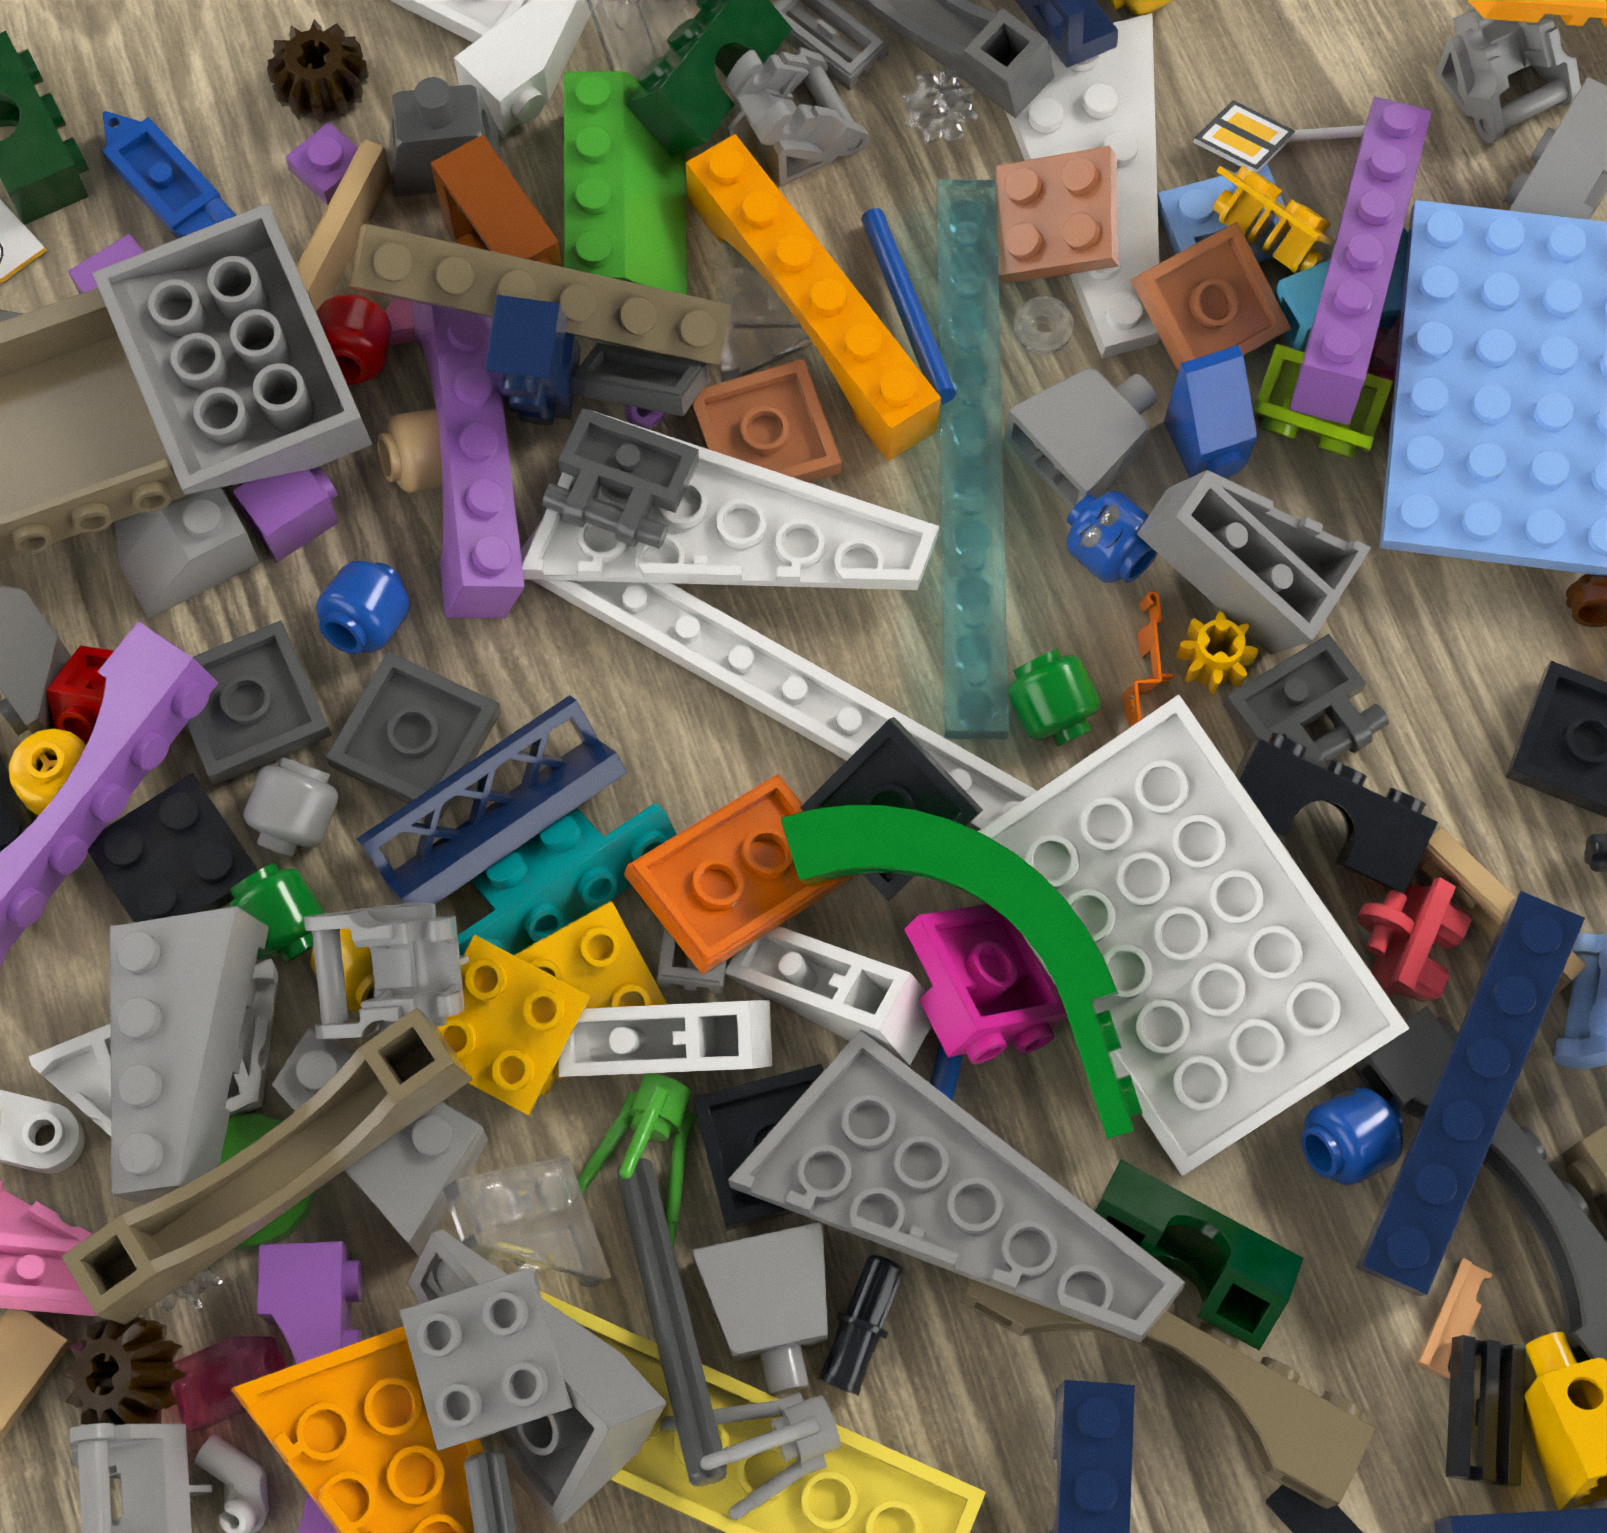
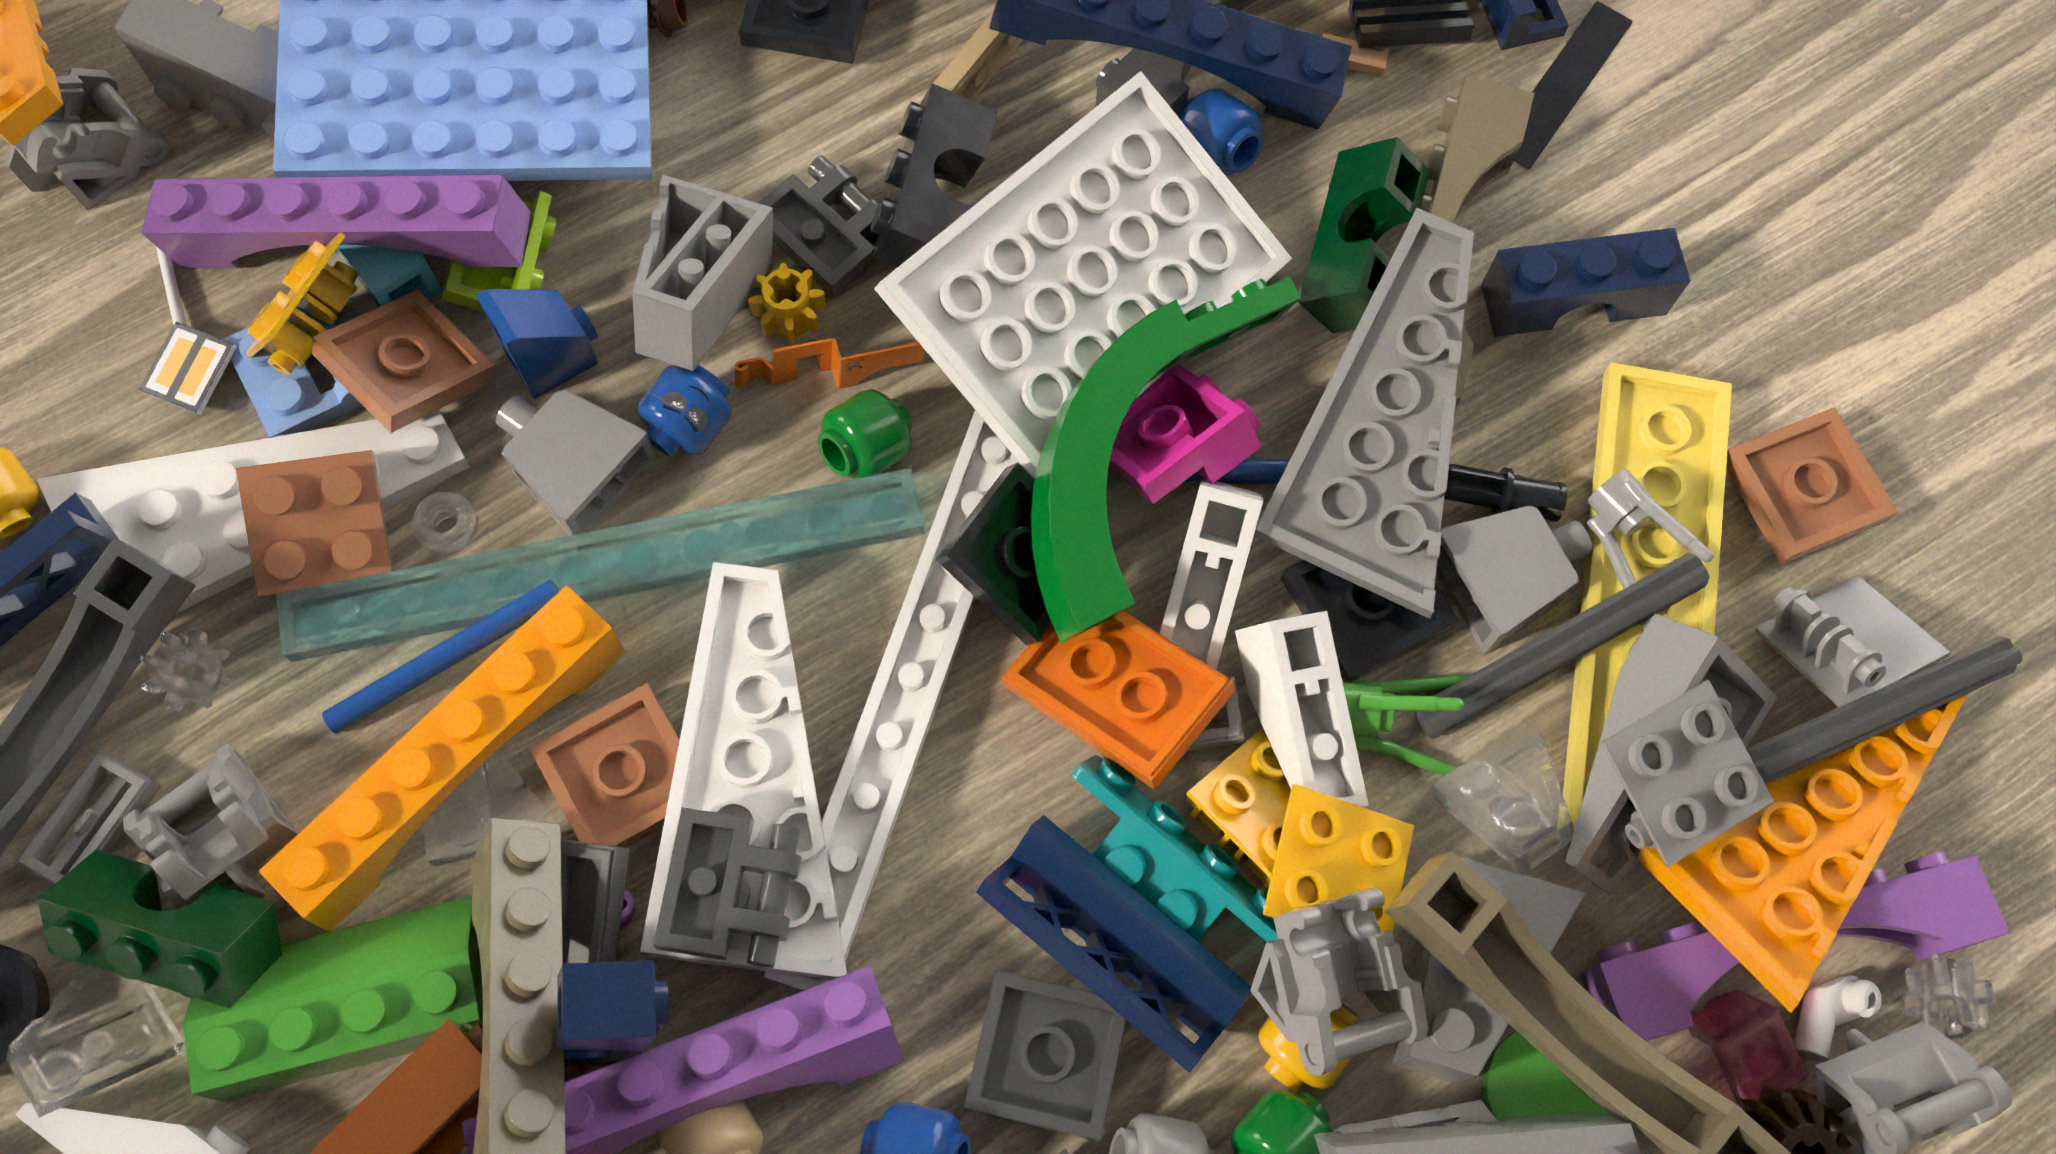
camera: 105 degrees left, 0 degrees up
(1404, 935) = (1029, 109): coral hips -> none

